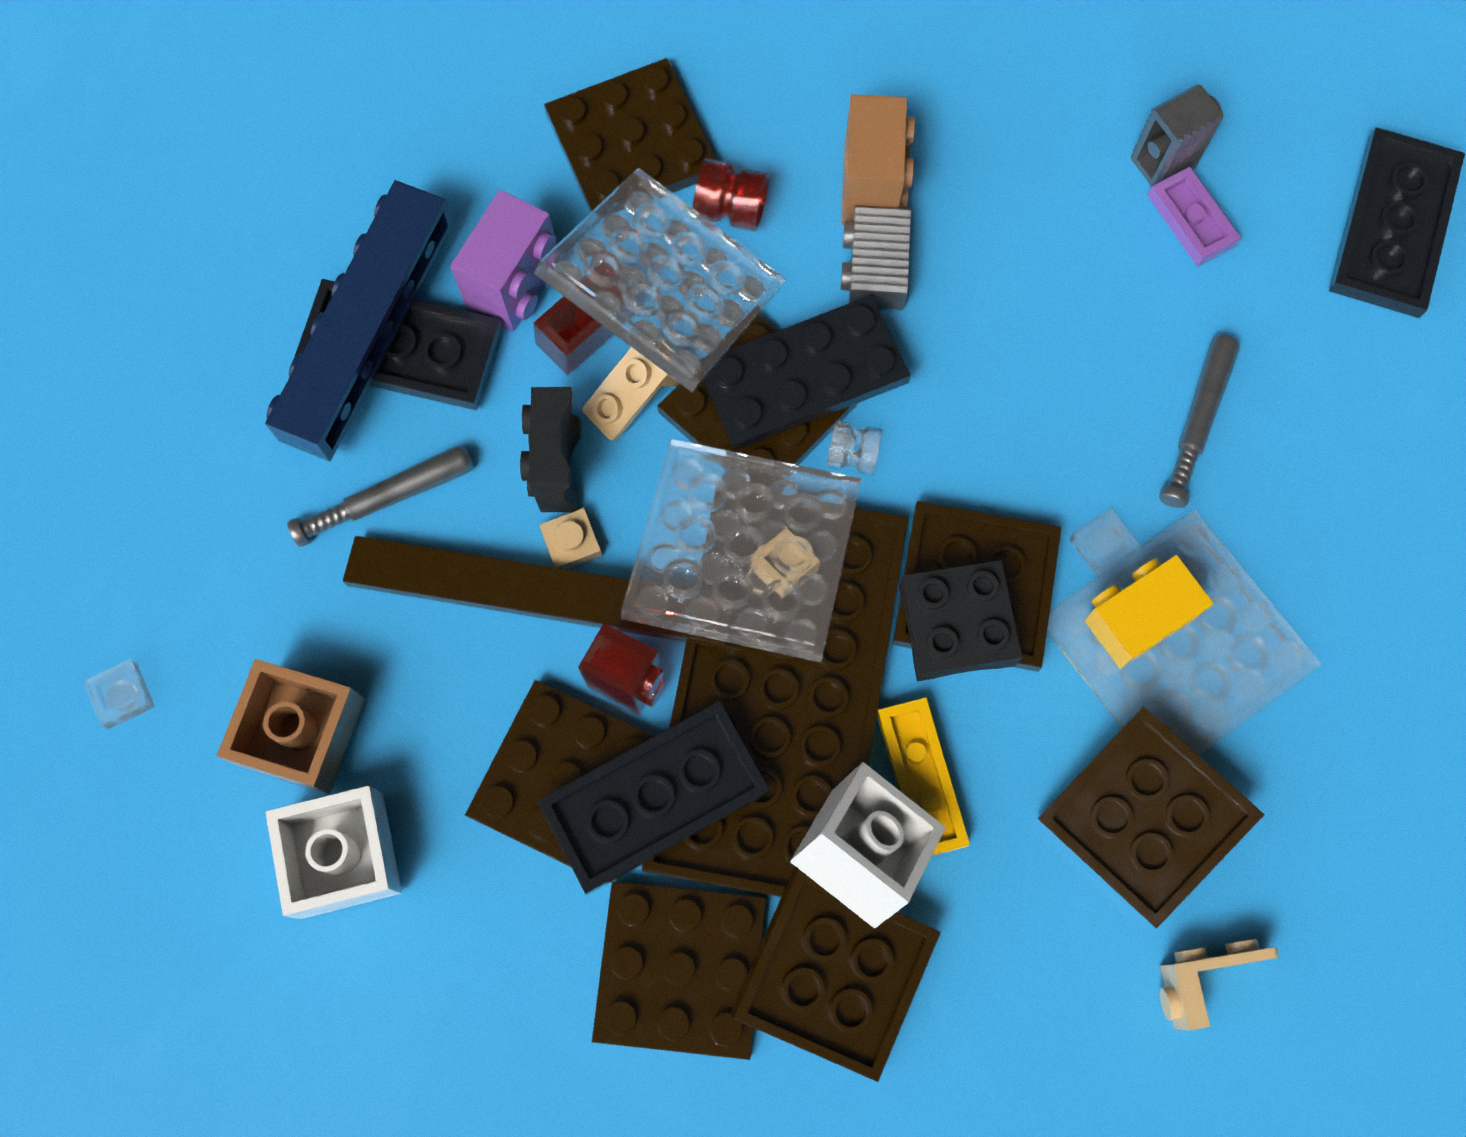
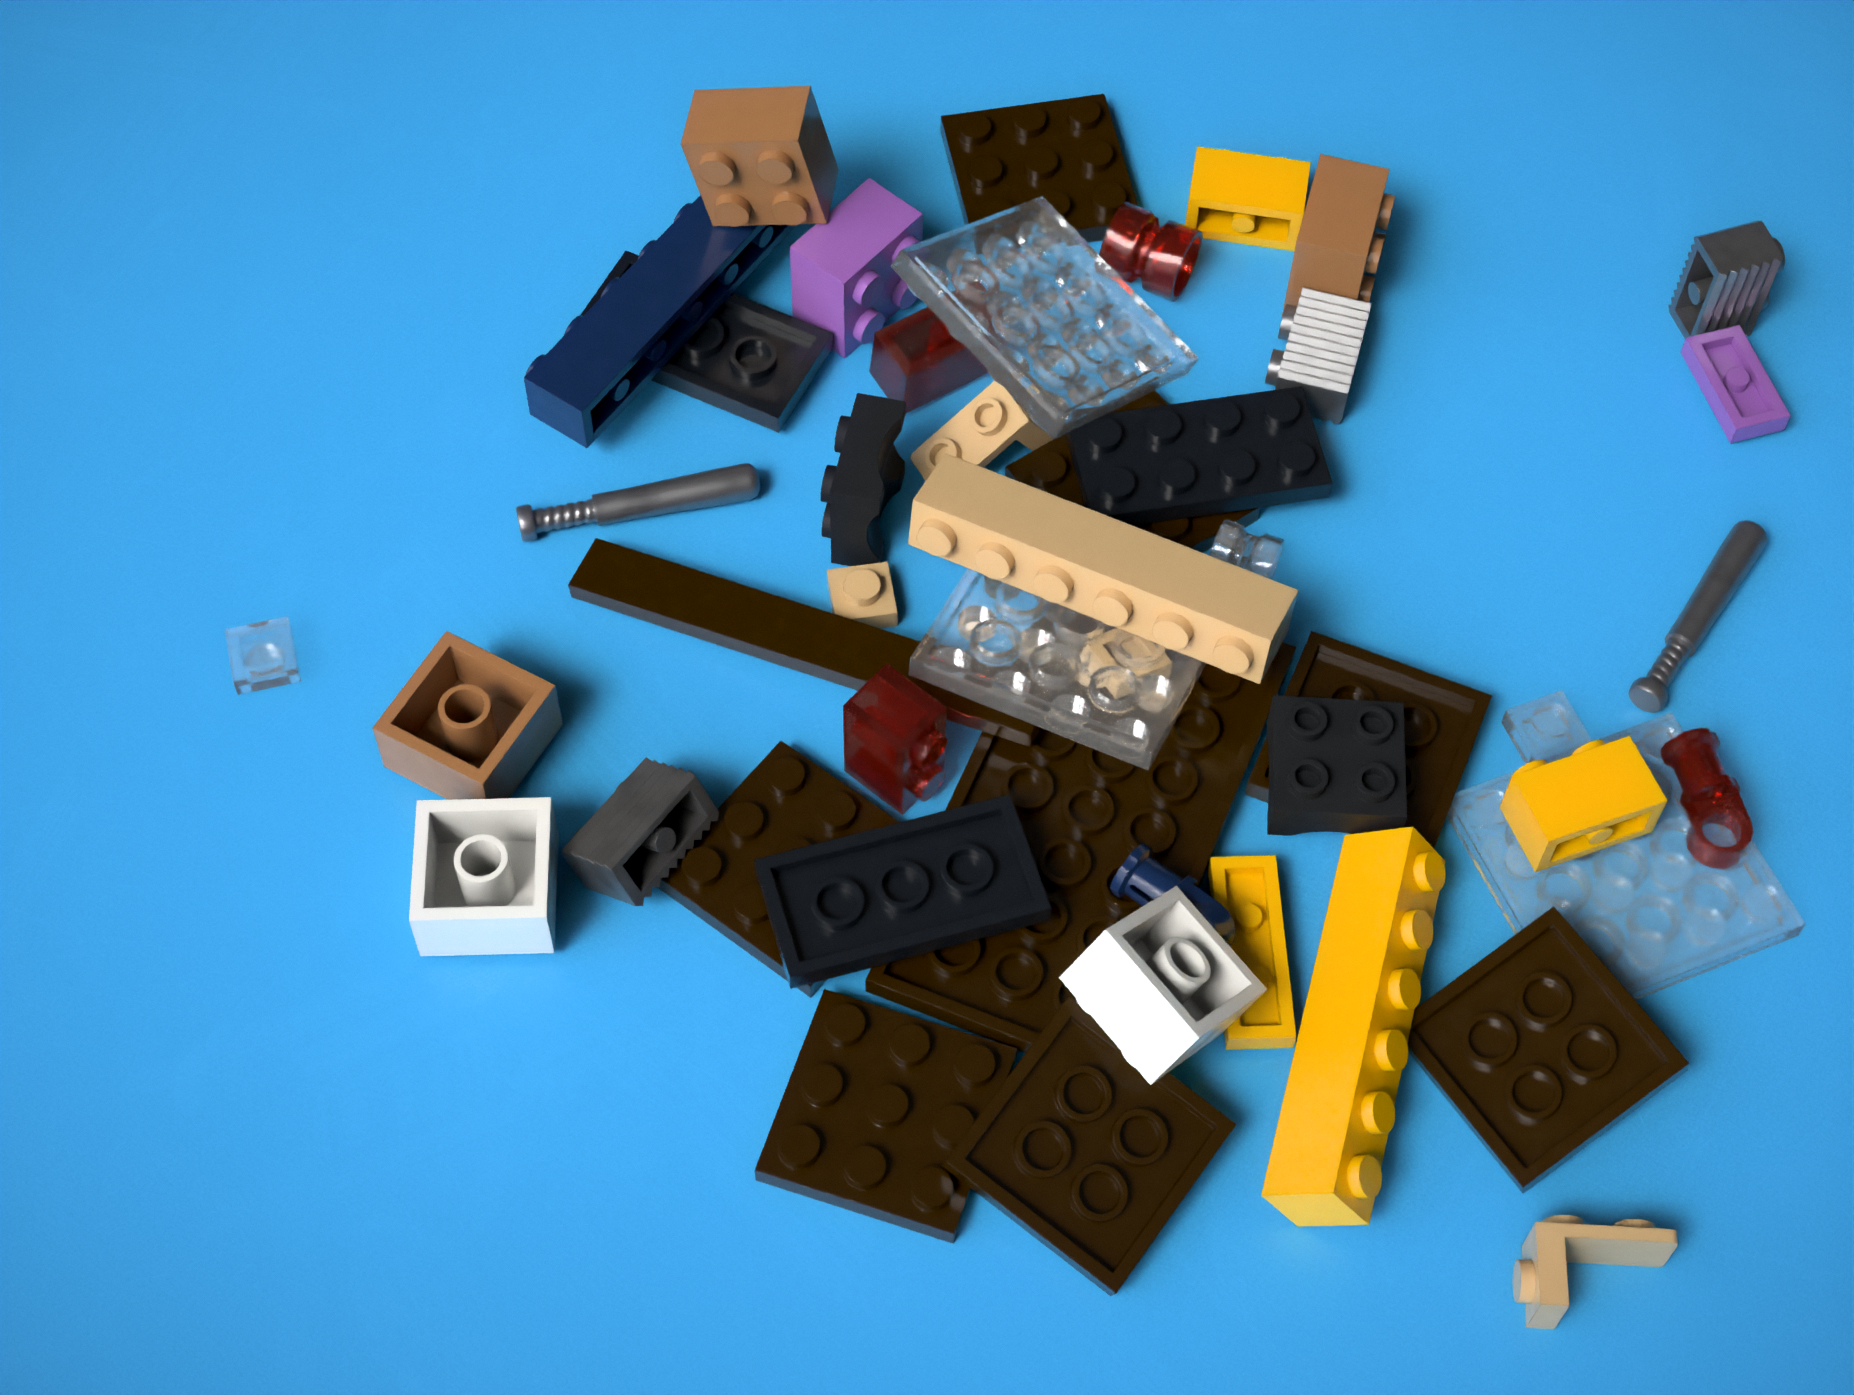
camera: 10 degrees right, 15 degrees down
(408, 197) = (760, 156): none -> medium nougat brick
(445, 787) = (640, 832): none -> flat silver brick
(751, 500) = (1102, 567): none -> tan brick
(796, 130) = (1247, 198): none -> yellow brick
(848, 753) = (1146, 879): none -> dark blue connector
(1013, 830) = (1355, 1030): none -> yellow brick
(1238, 584) = (1708, 796): none -> clear red connector

